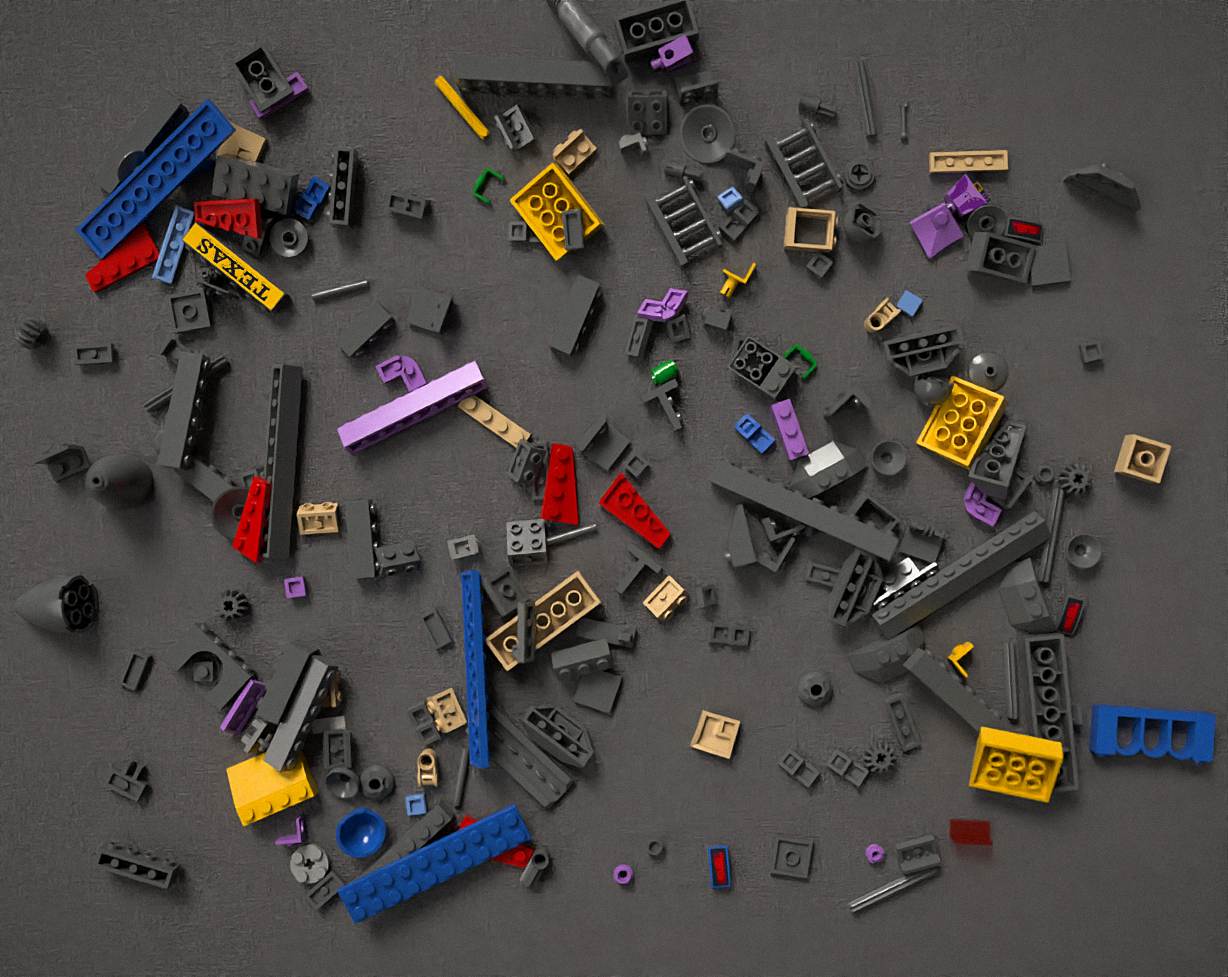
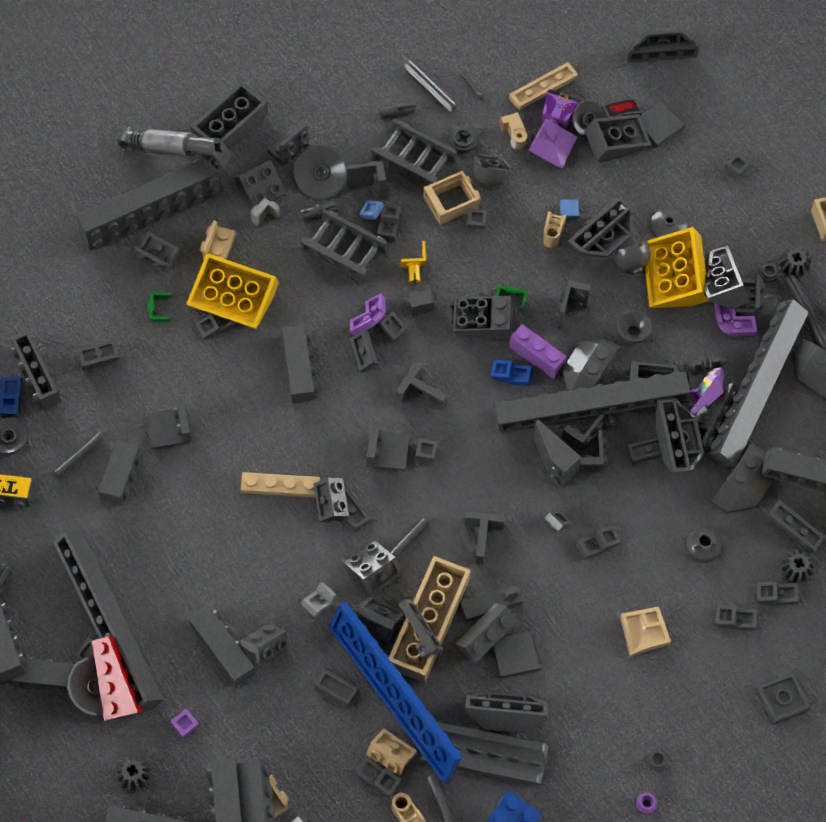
camera: 30 degrees left, 25 degrees down
(318, 518) = (171, 652): tan bracket -> none
(403, 367) = (172, 484): medium lavender plate -> none
(412, 408) = (201, 511): brick -> none
(461, 107) = (101, 260): yellow axle -> none
(560, 490) = (373, 505): red wing -> none
(573, 229) = (256, 293): dark grey tile -> none
(629, 507) = (441, 487): red wing -> none
(664, 372) = (403, 365): green brick -> none
(666, 599) = (526, 542): tan bracket -> none
(681, 53) = (258, 130): medium lavender torso -> none
(719, 867) = (727, 743): slope -> none
(911, 559) = (708, 390): none -> medium lavender animal
(912, 195) = (516, 130): none -> tan leg
(958, 652) = (801, 443): yellow bracket -> none

